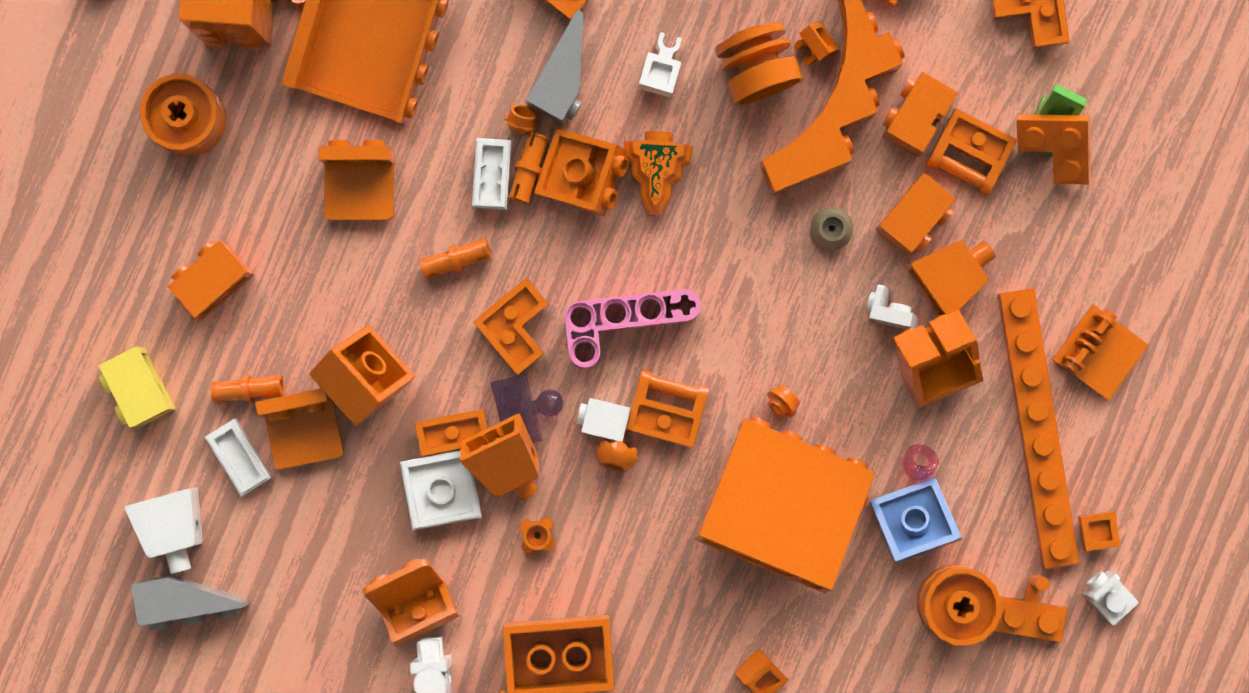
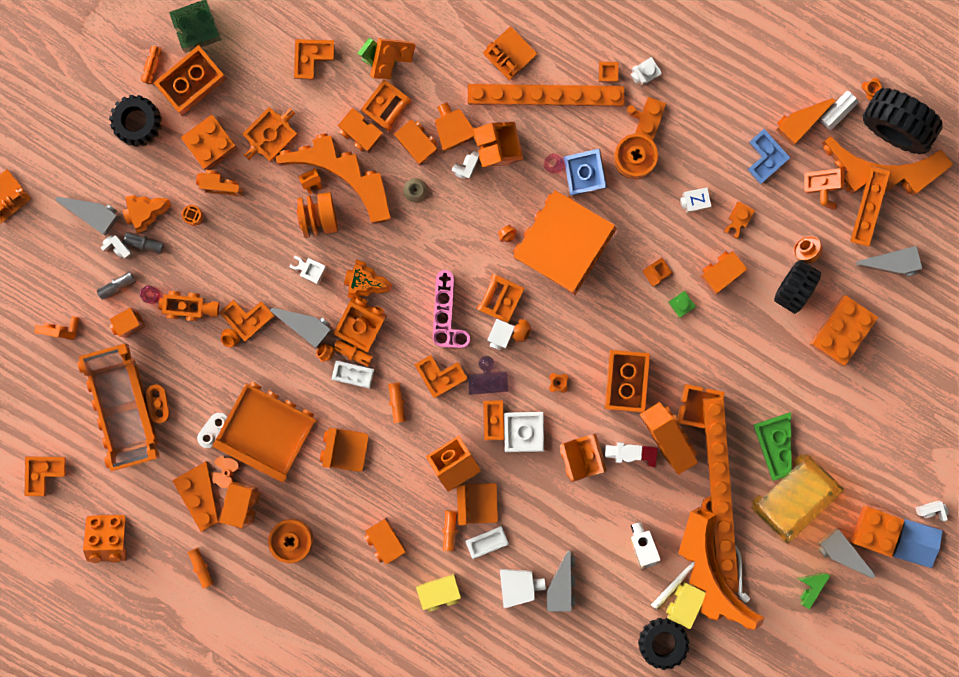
camera: 75 degrees left, 0 degrees up
(503, 458) = (512, 393): orange torso -> none

